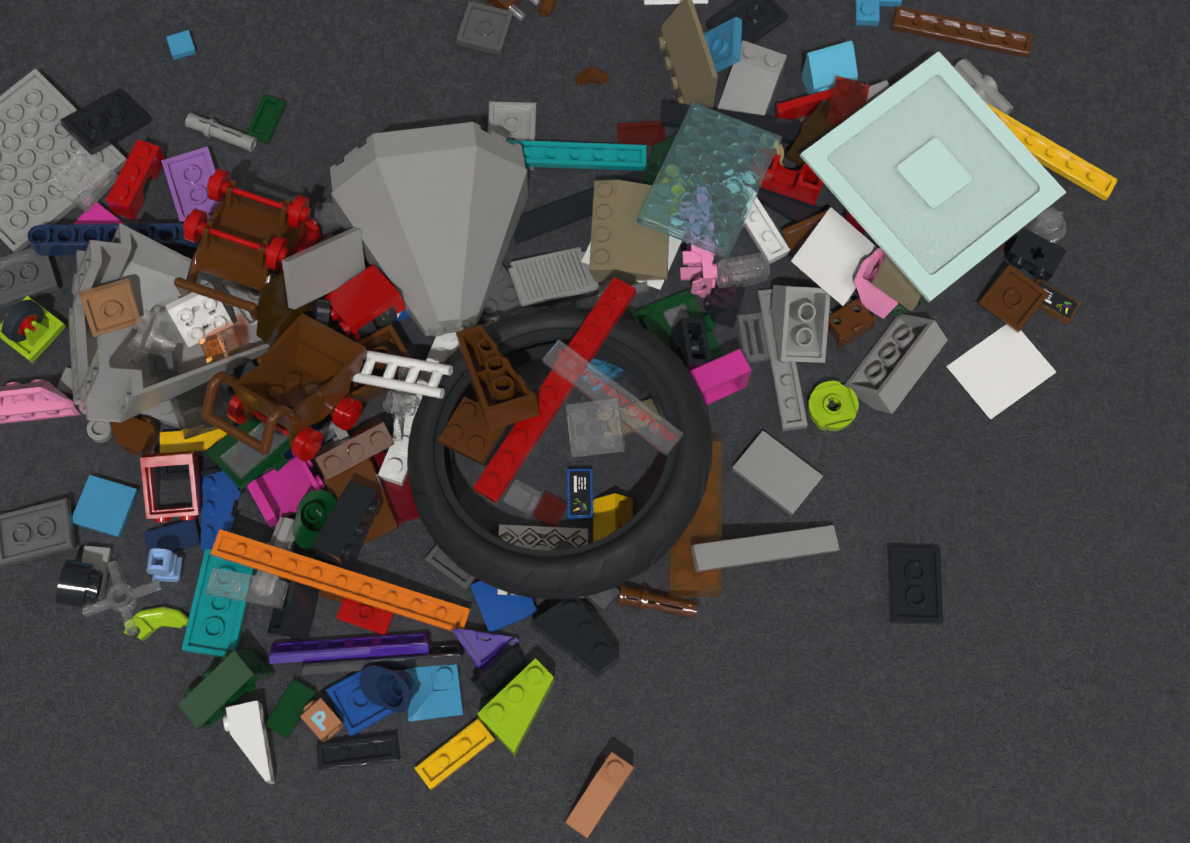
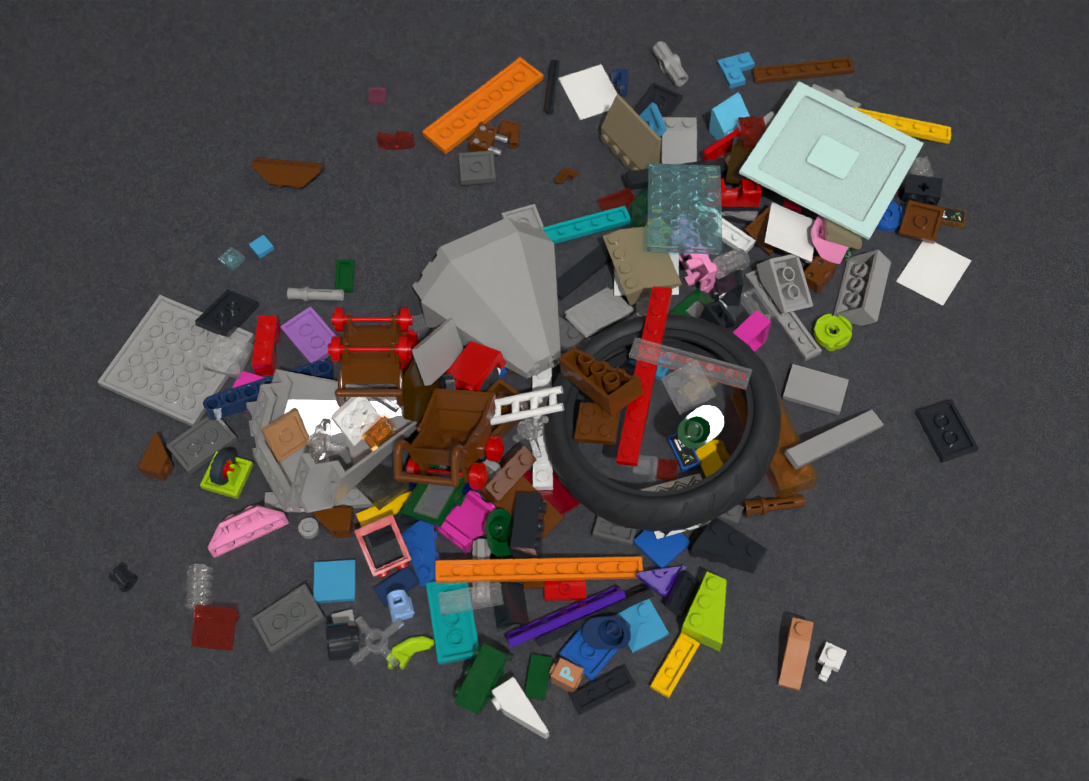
camera: 15 degrees left, 10 degrees down
(139, 49) = (232, 258): none -> clear light blue plate
(584, 485) = (700, 426): none -> dark green piece
(640, 816) = (831, 659): none -> white plate
(979, 278) = (891, 218): none -> blue tile

